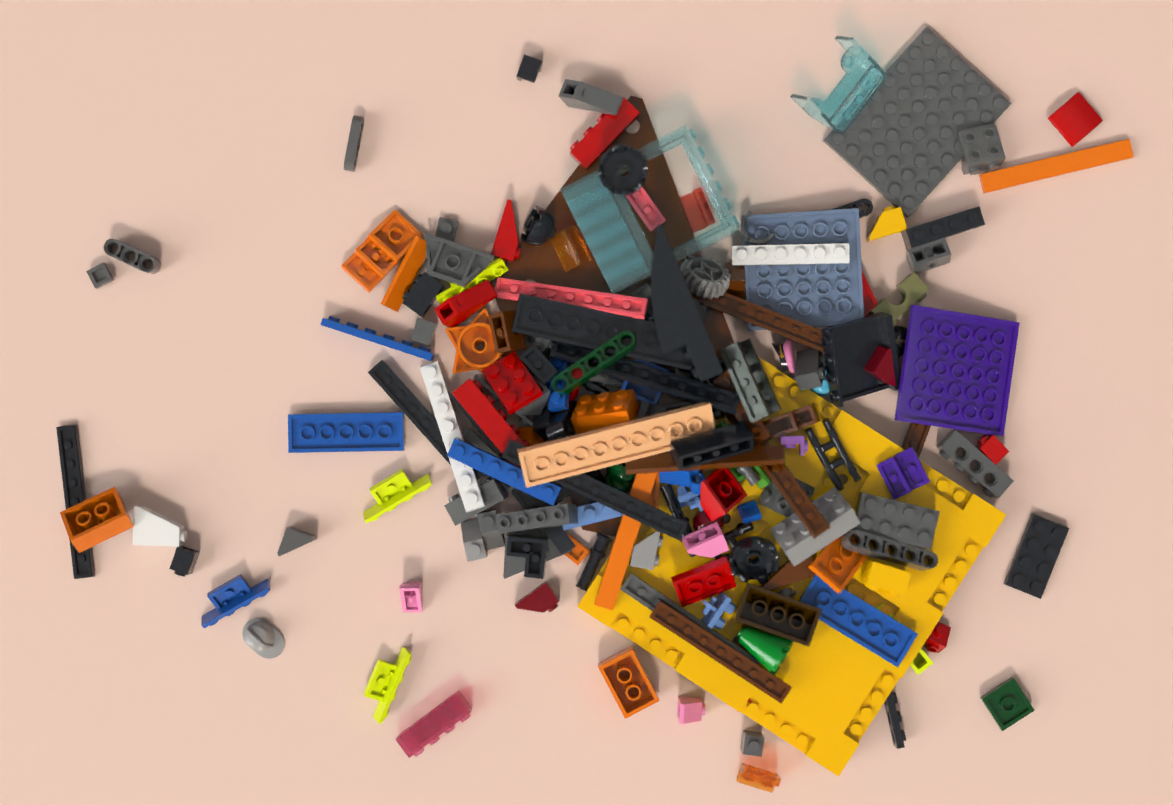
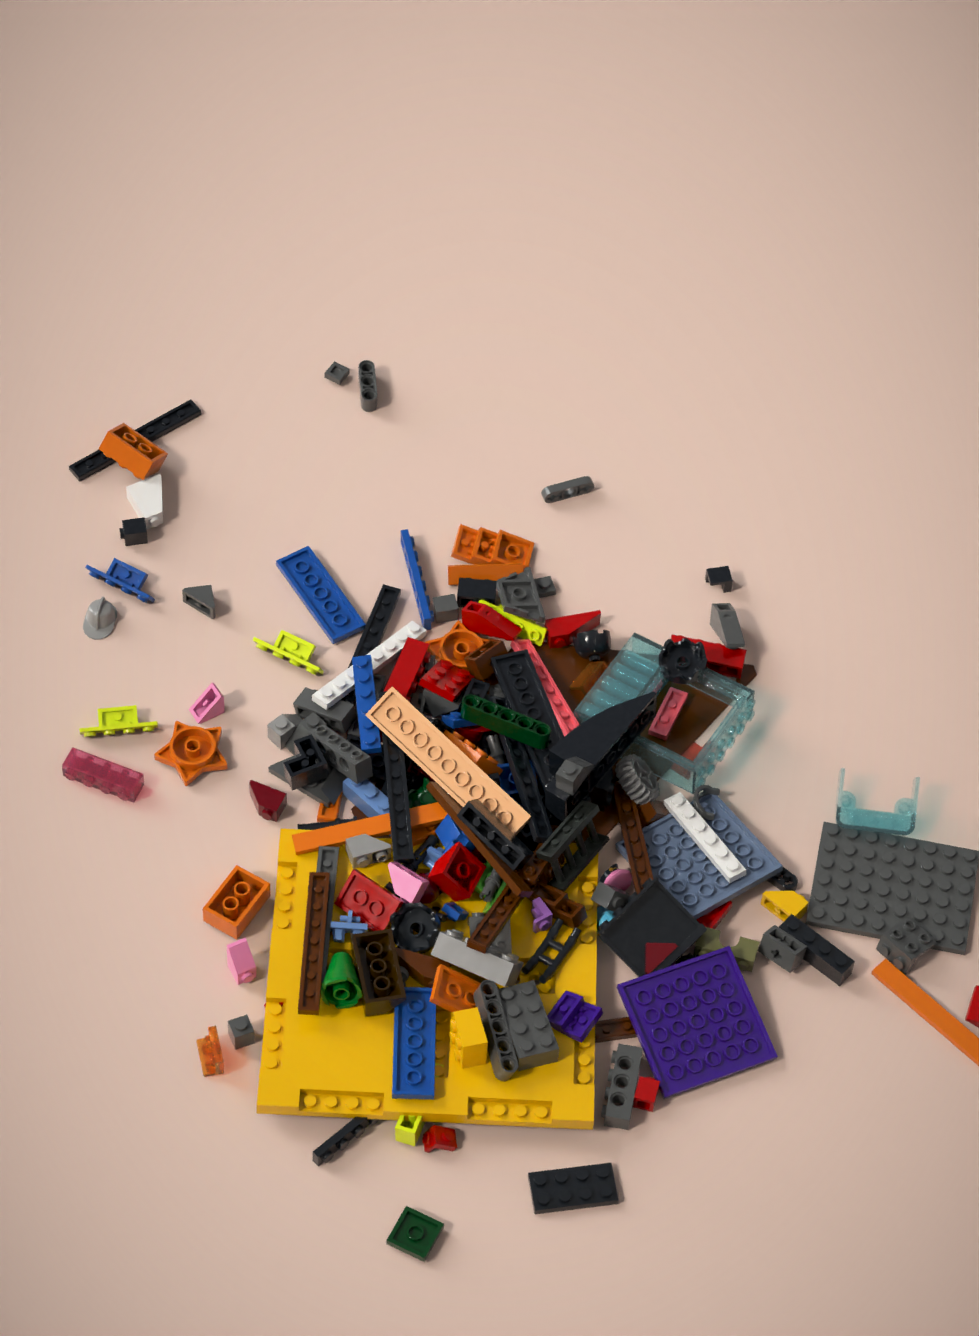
camera: 55 degrees right, 35 degrees down
(443, 645) = (192, 751): none -> orange plate
(705, 349) = (572, 774): none -> dark grey slope

